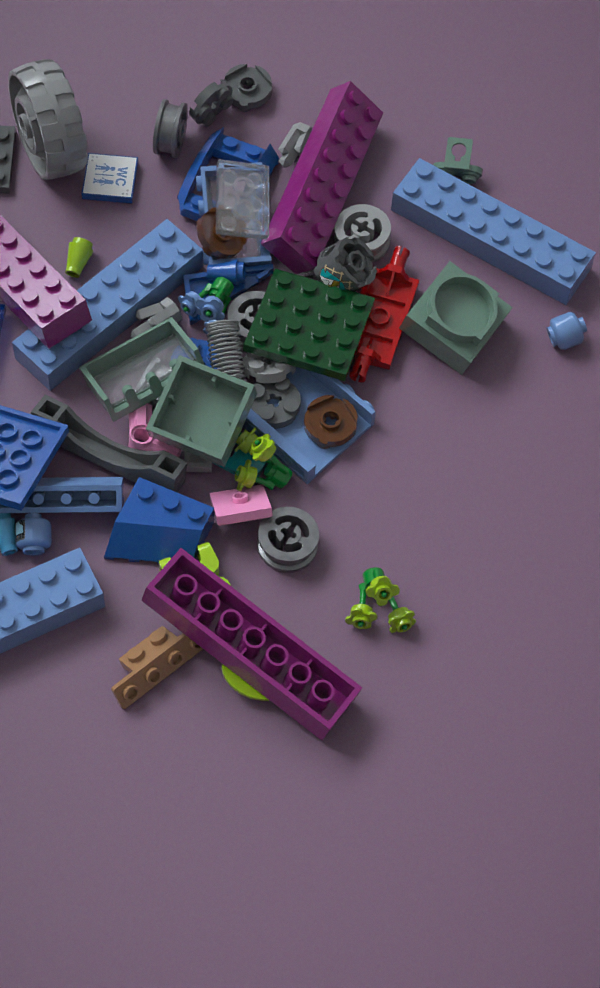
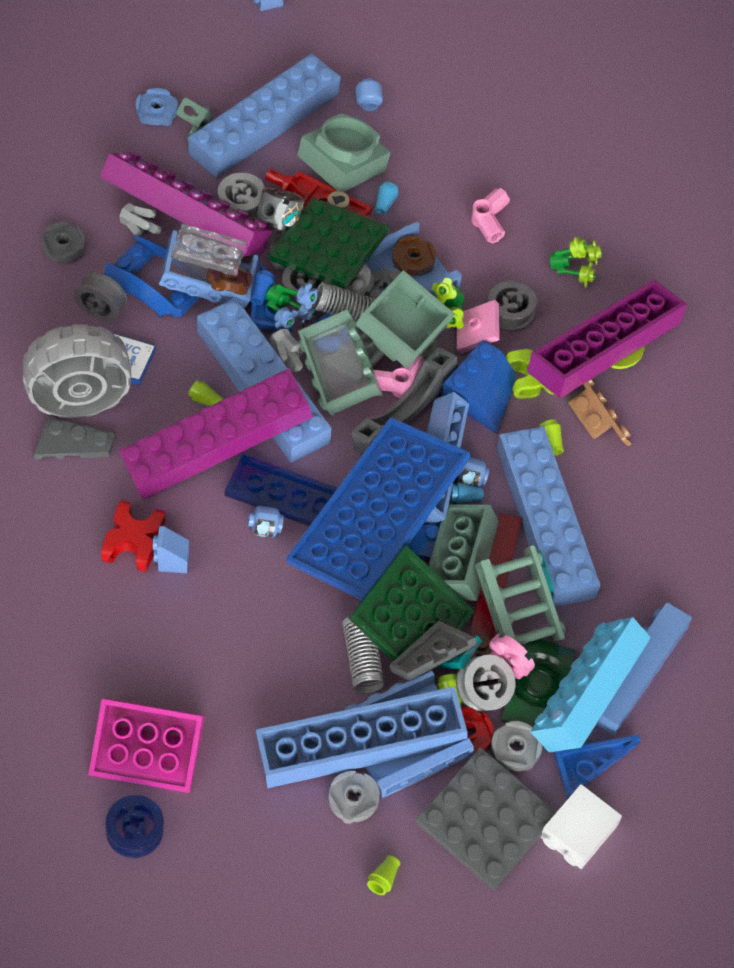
camera: 80 degrees left, 5 degrees down
(106, 614) = (554, 435): none -> lime cone
(211, 103) = (80, 261): dark grey plate -> none
(380, 325) = (339, 199): none -> dark tan tile
(409, 492) = (484, 214): none -> bright pink piece
(412, 378) = (386, 196): none -> dark azure cone
(469, 115) = (161, 116): none -> medium blue plate

